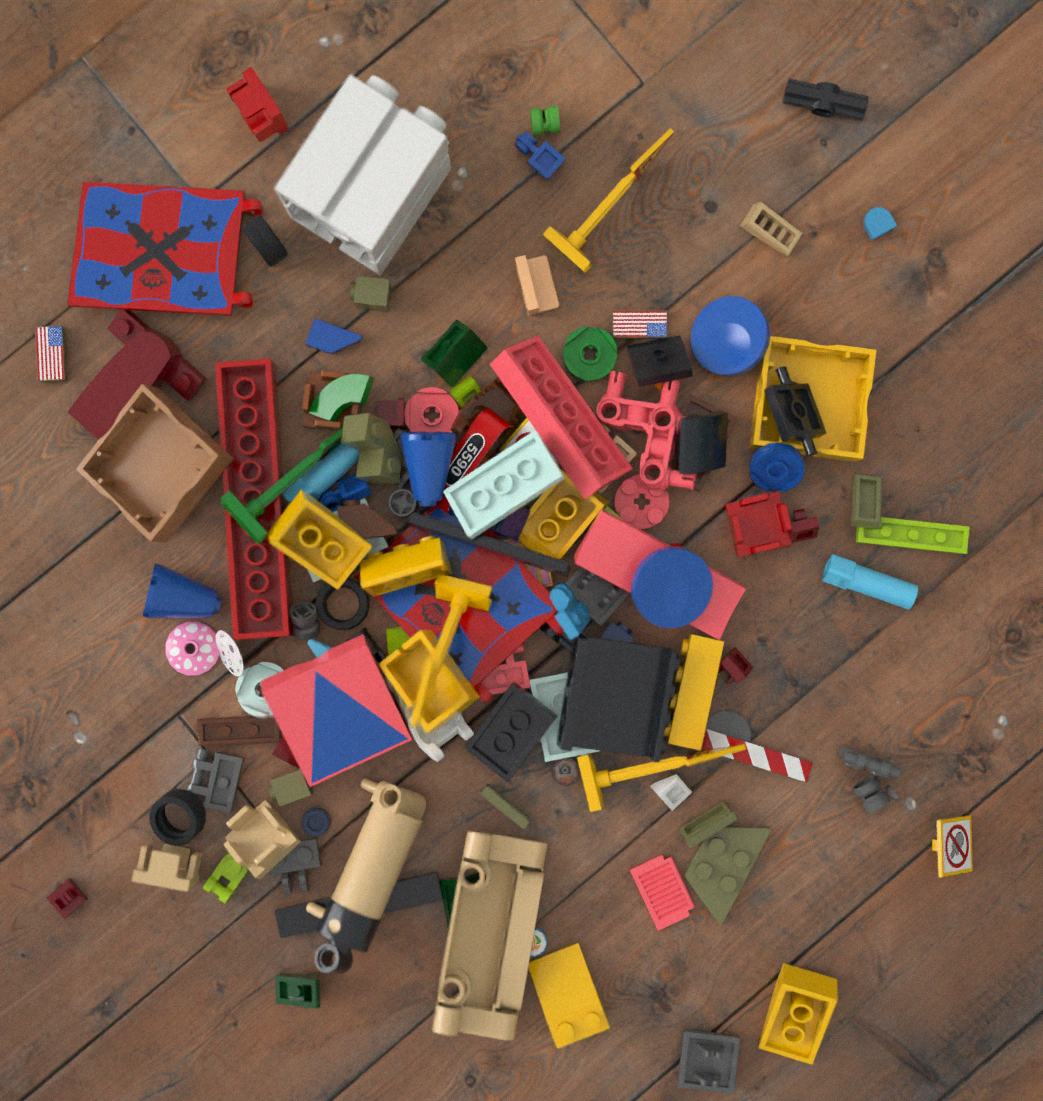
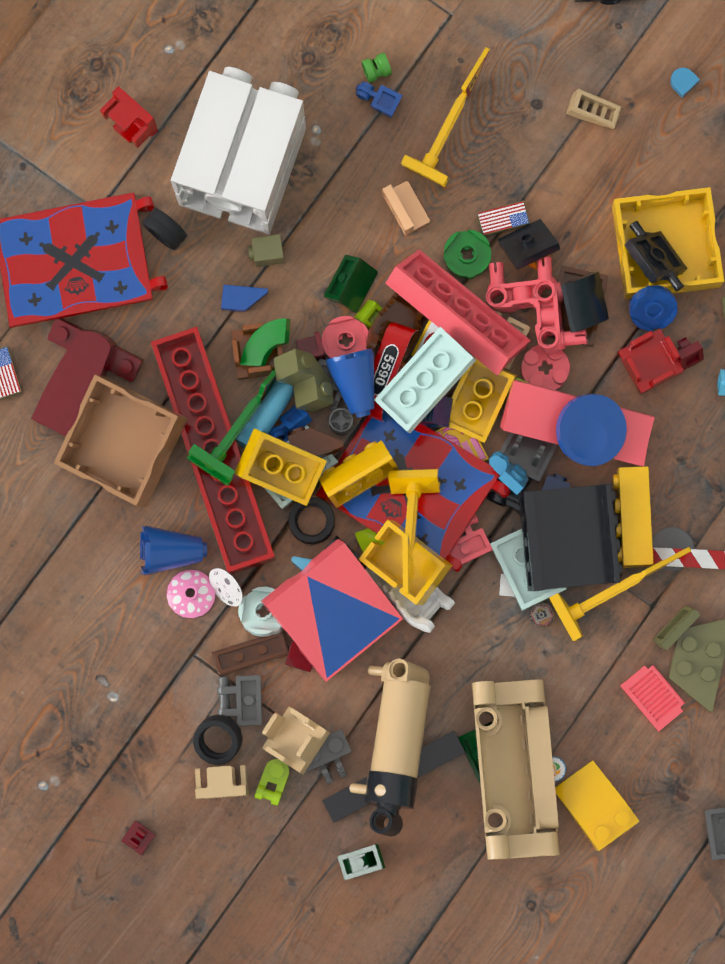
camera: 10 degrees left, 5 degrees down
(289, 788) = (308, 689): olive brick -> none
(304, 620) = (283, 543): dark grey wheel -> none
(316, 822) = (337, 715): dark blue tile -> none
(490, 544) = (426, 435): black tile -> none
(505, 806) = (498, 657): olive tile -> none
(511, 732) = (486, 591): black plate -> none
(671, 791) = (638, 608): white slope -> none
(730, 336) = (583, 208): blue piece -> none
(736, 665) = (664, 485): dark red tile -> none

